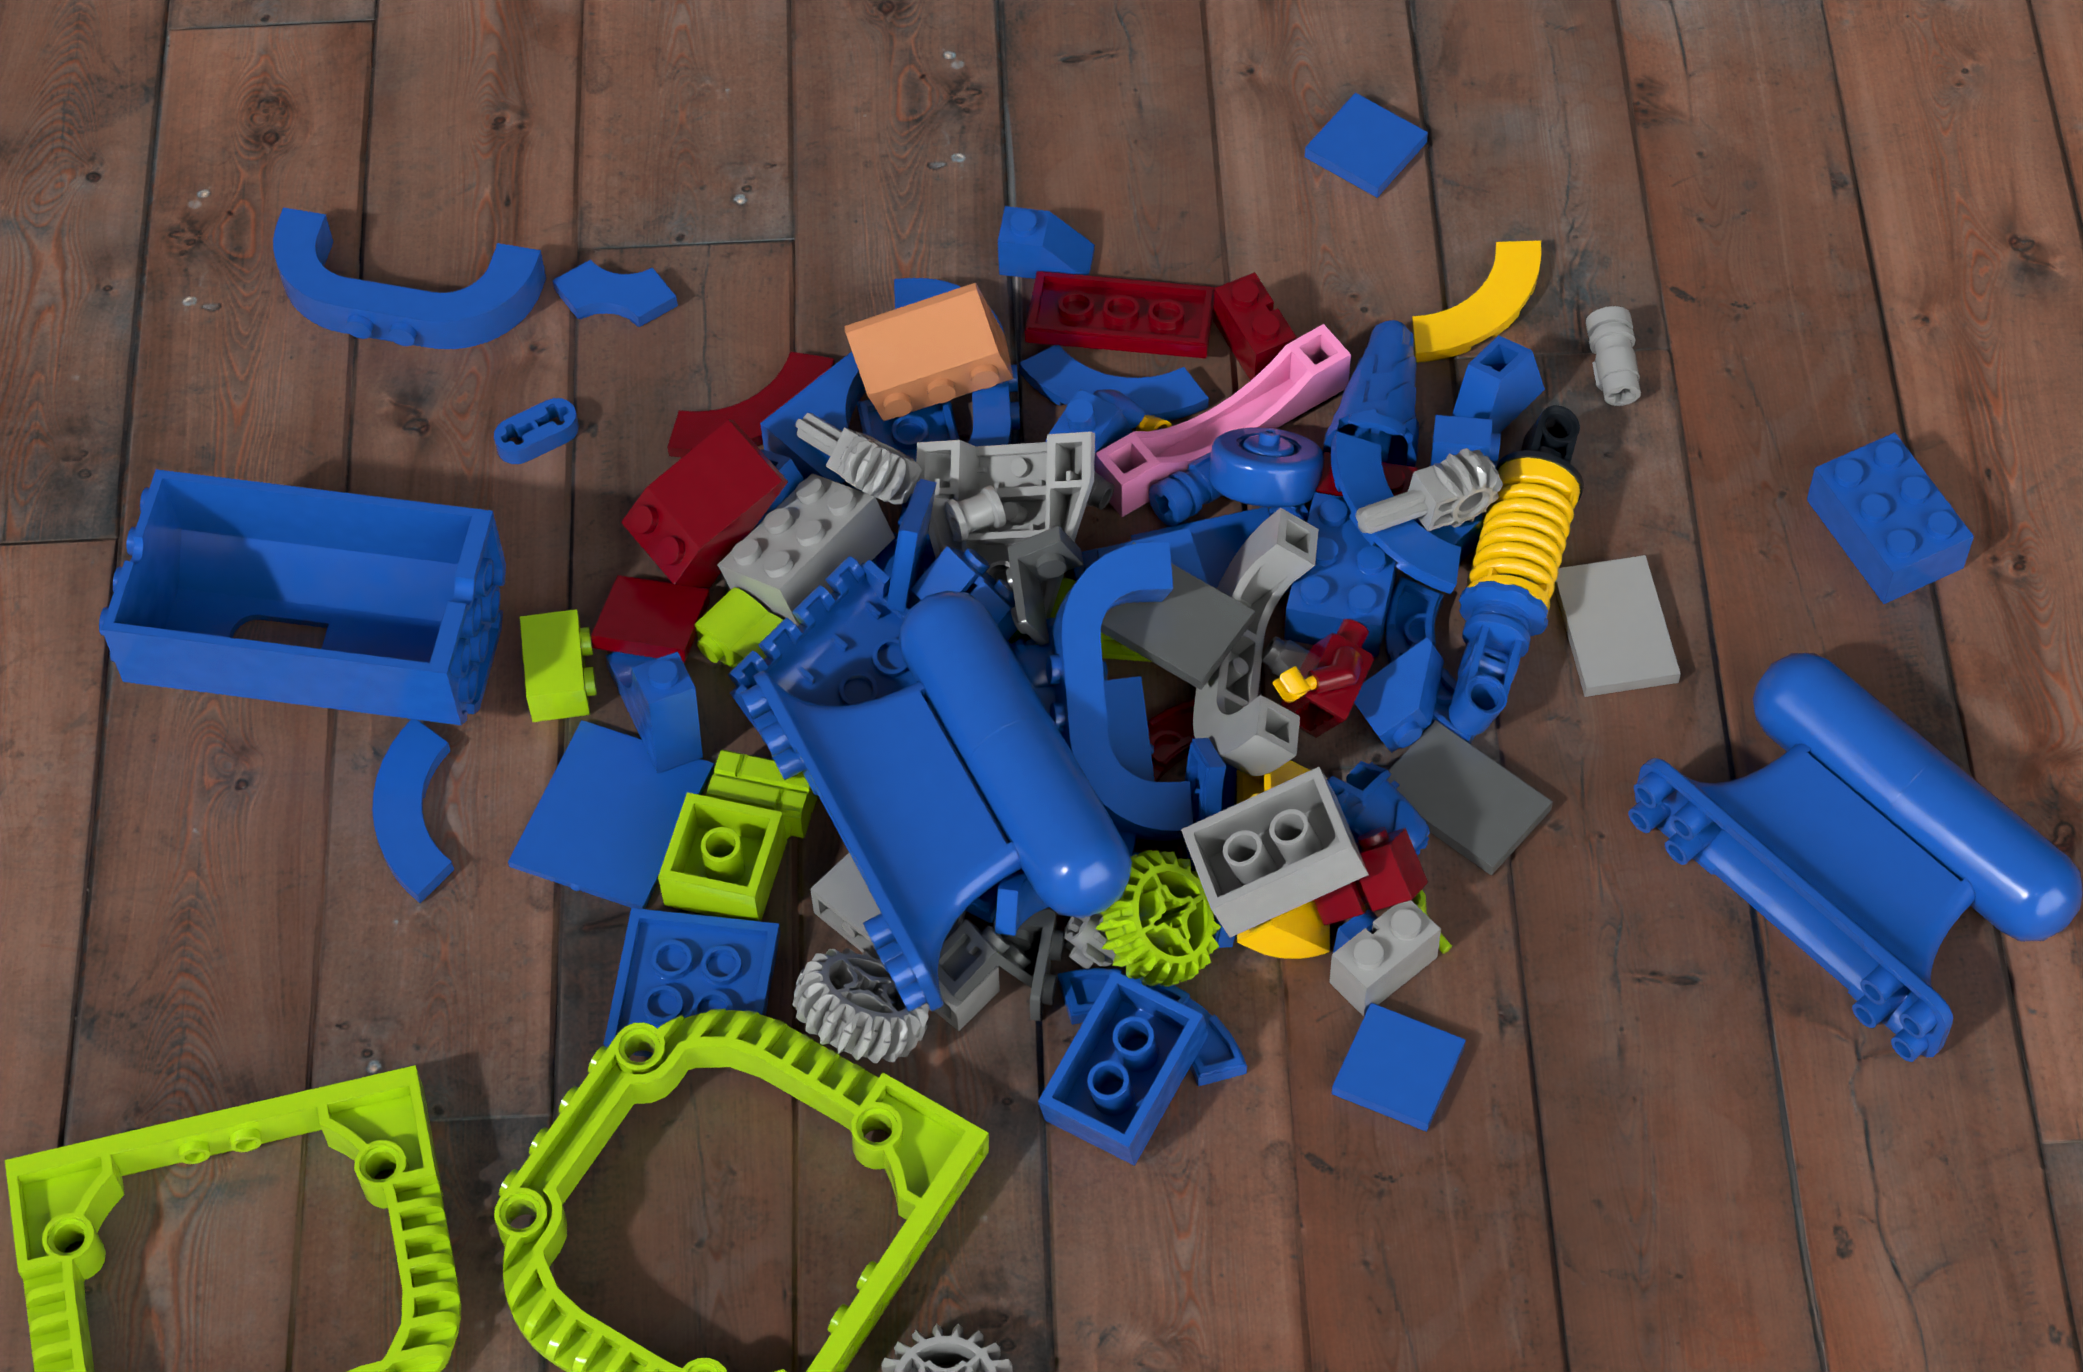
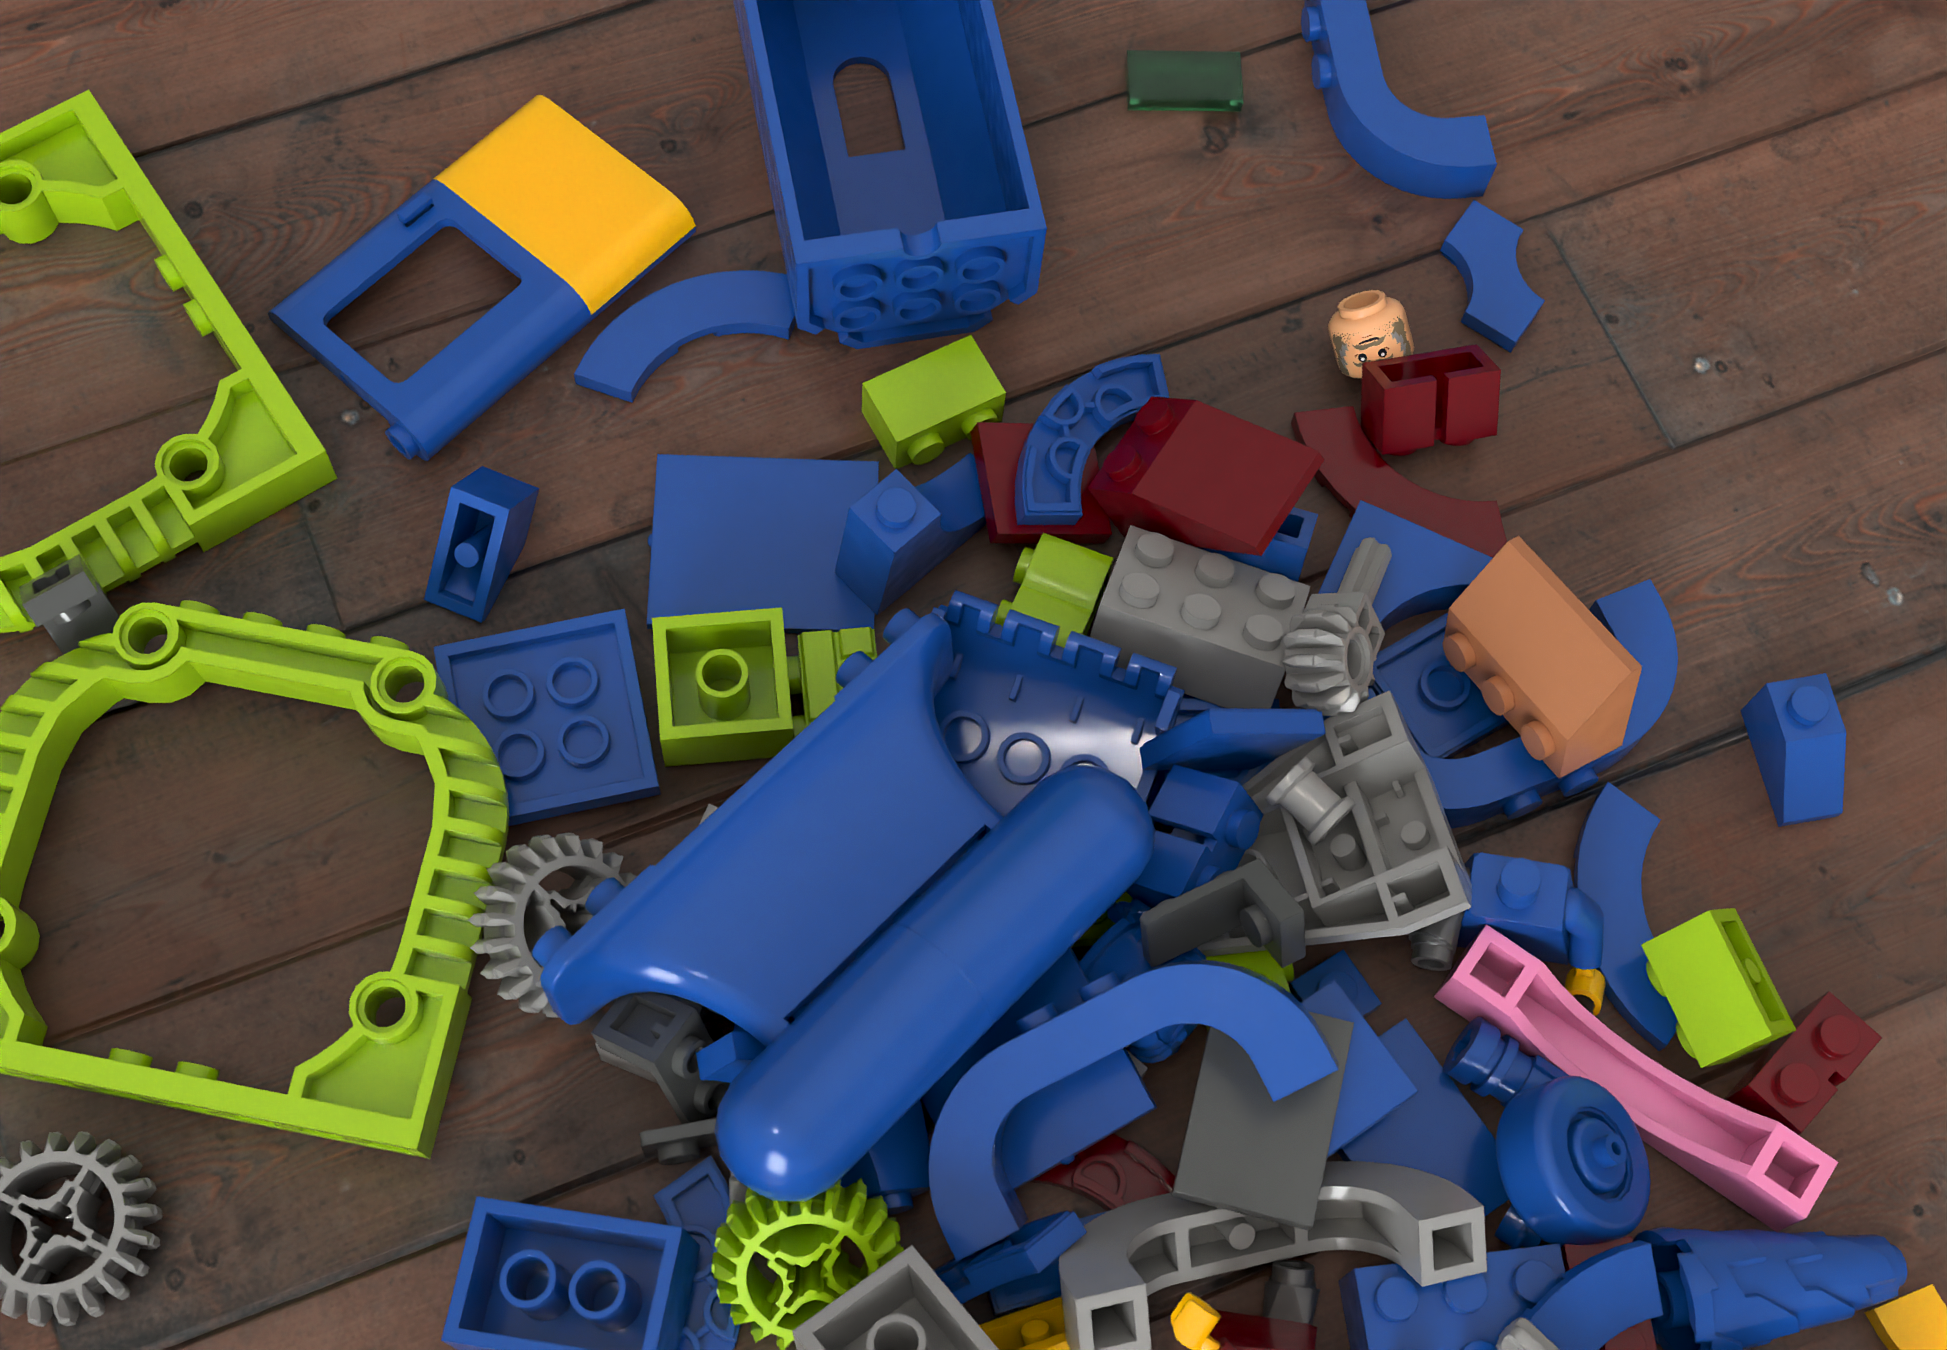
camera: 60 degrees right, 10 degrees up
(266, 870) = (549, 209): none -> piece
(361, 425) = (1184, 80): none -> clear green tile
(468, 1265) = (69, 604): none -> dark grey bracket
(531, 991) = (479, 541): none -> blue slope
(536, 431) = (1257, 263): blue beam -> none
(618, 586) = (1070, 426): none -> blue tile
(635, 376) = (1368, 330): none -> light nougat head
(701, 357) = (1430, 398): none -> dark red piece
(1120, 314) = (1739, 854): dark red tile -> none
(1187, 348) = (1716, 988): none -> lime brick

